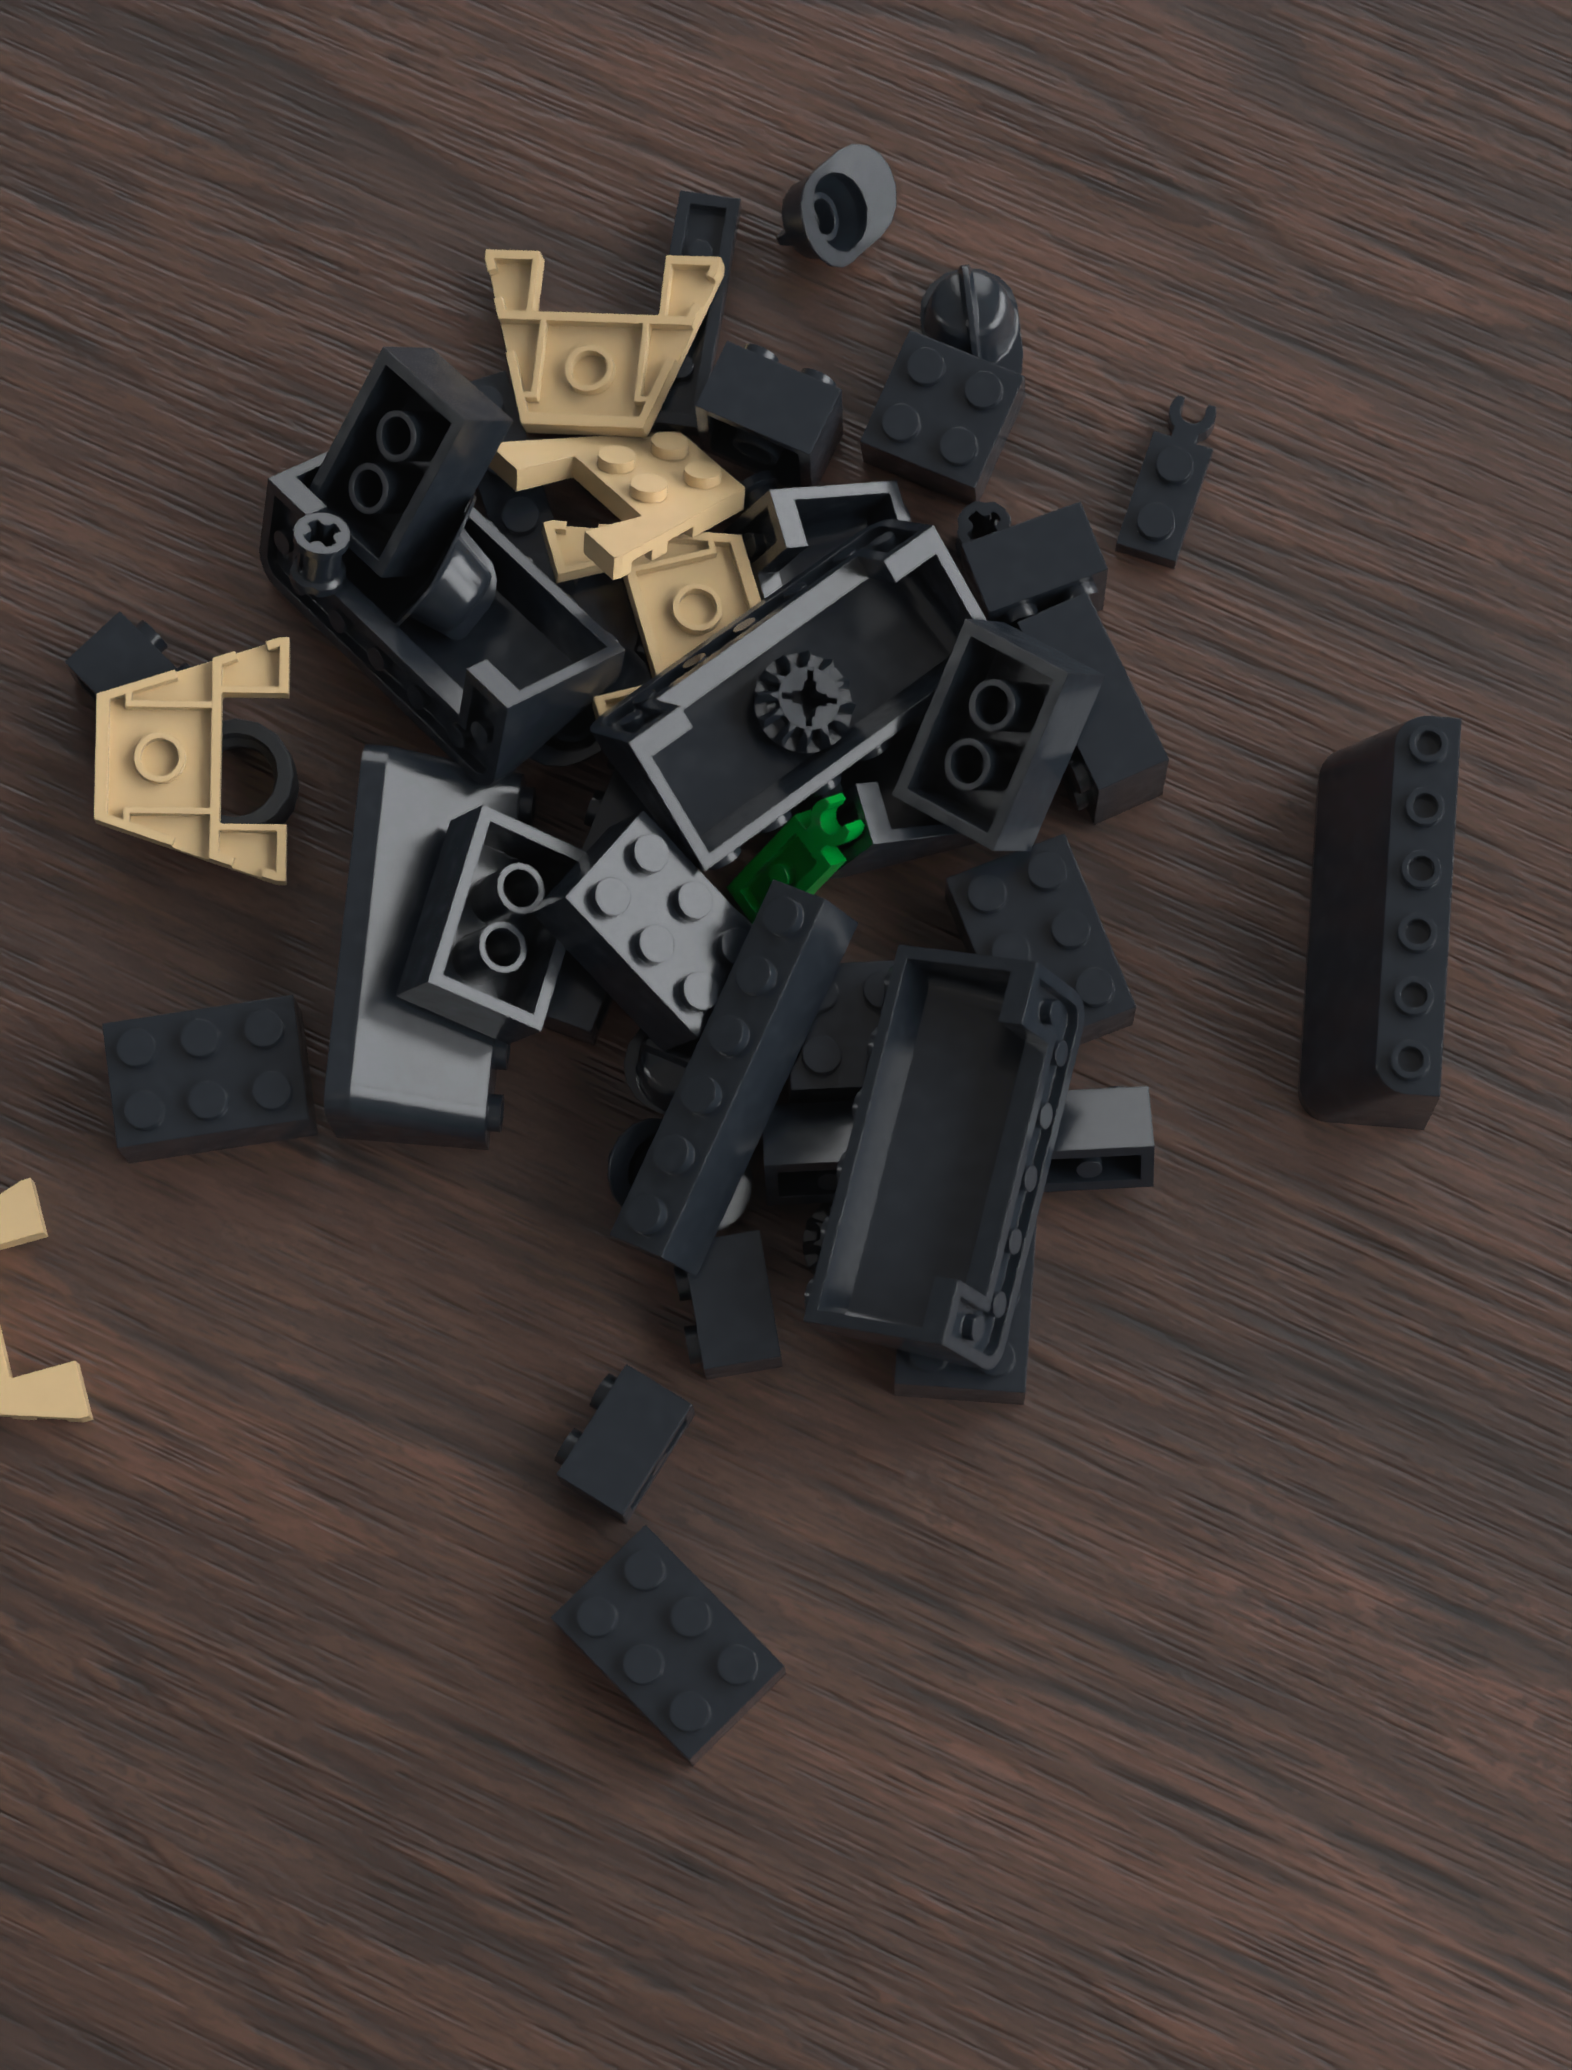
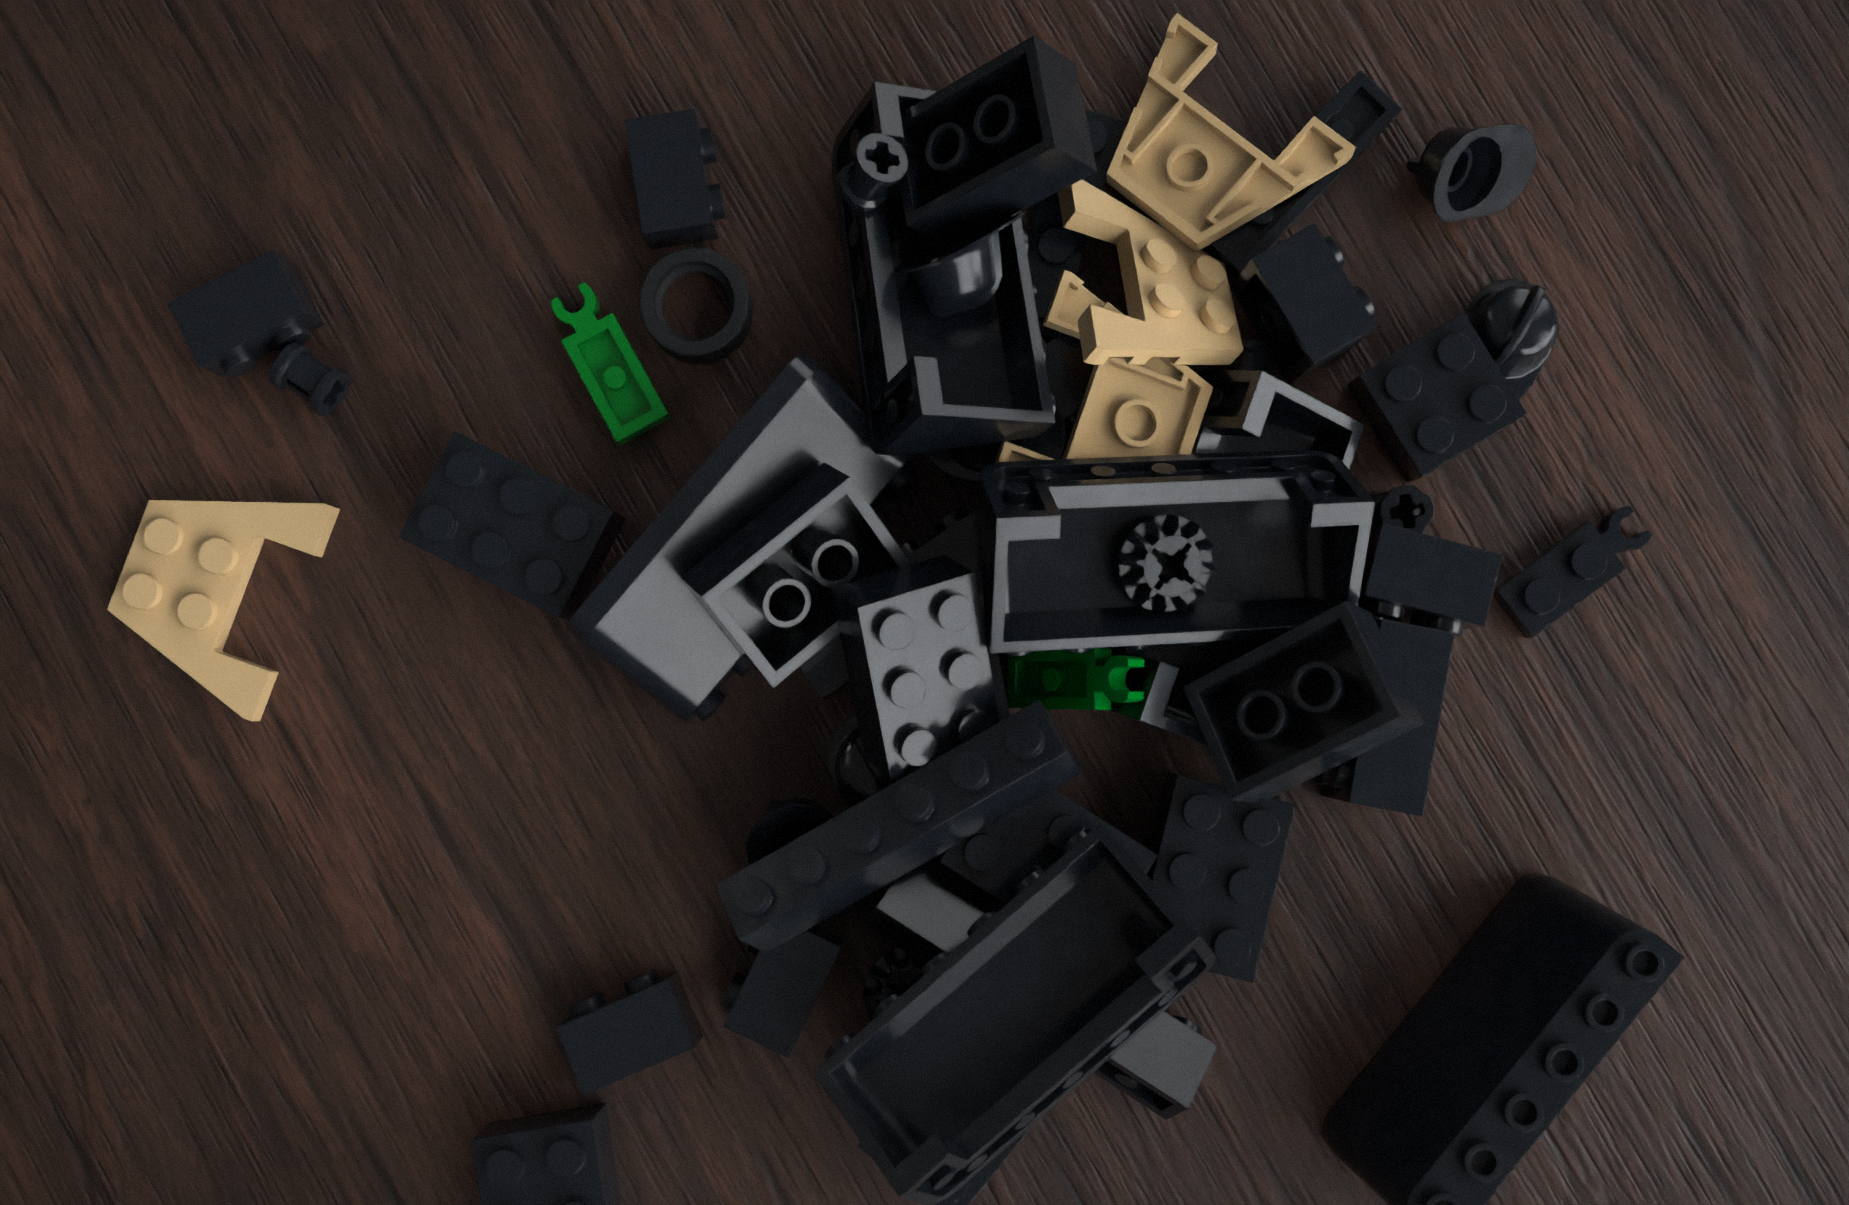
camera: 30 degrees right, 10 degrees up
(164, 760) = (643, 252): tan wing -> none
(200, 891) = (611, 369): none -> green plate

